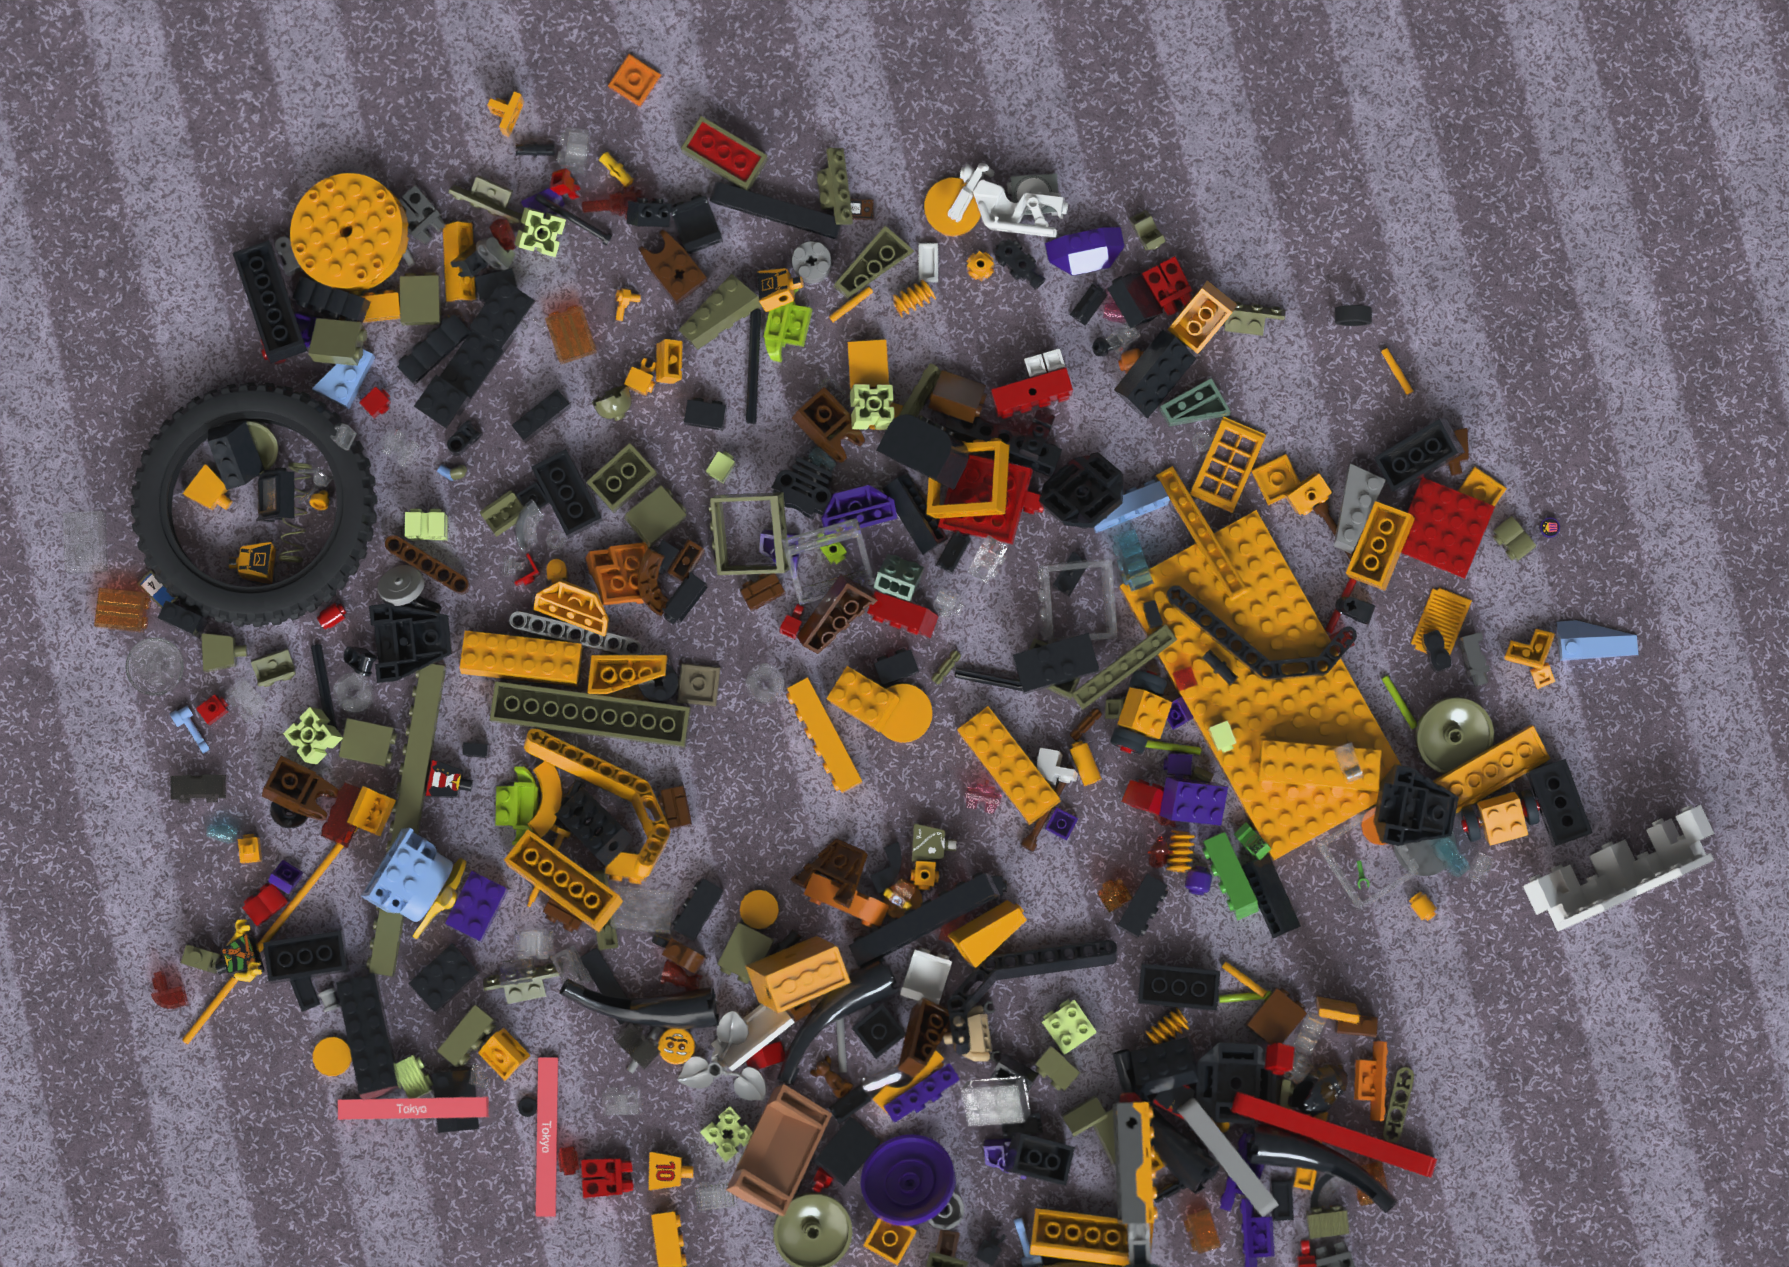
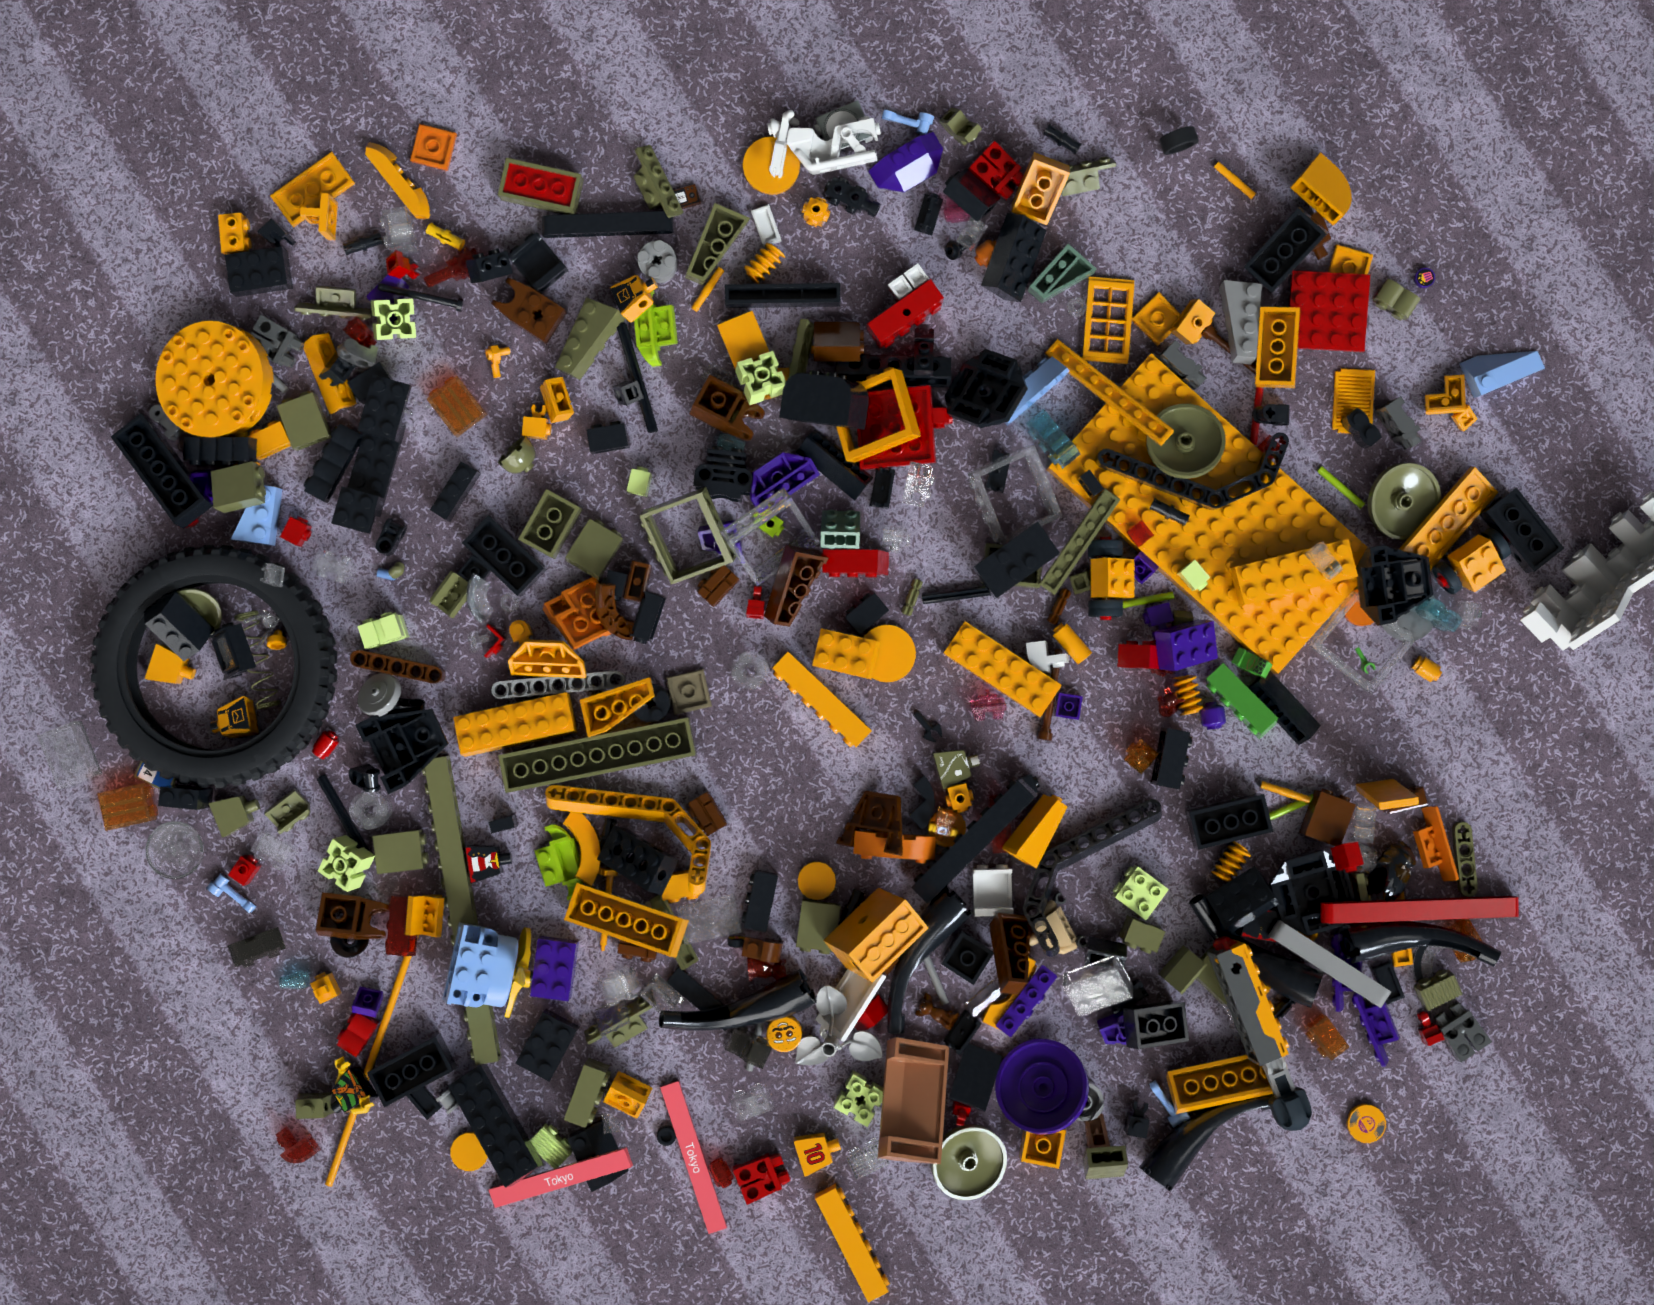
camera: 25 degrees left, 5 degrees up
(415, 100) = (234, 233): none -> light orange brick
(426, 143) = (258, 271): none -> black brick
(455, 112) = (275, 233): none -> black hinge
(502, 79) = (306, 188): none -> light orange tile
(582, 77) = (413, 199): none -> light orange brick
(739, 377) = (627, 392): none -> black brick
(918, 797) = (927, 726): none -> black bar
(920, 335) = (782, 295): none -> black brick
(1112, 216) = (922, 123): none -> light blue brick
(1242, 275) = (1062, 139): none -> black pin
(1264, 610) = (1193, 446): none -> olive dish
(1281, 532) = (1181, 366): none -> dark grey hips
(1477, 408) = (1324, 189): none -> light orange brick

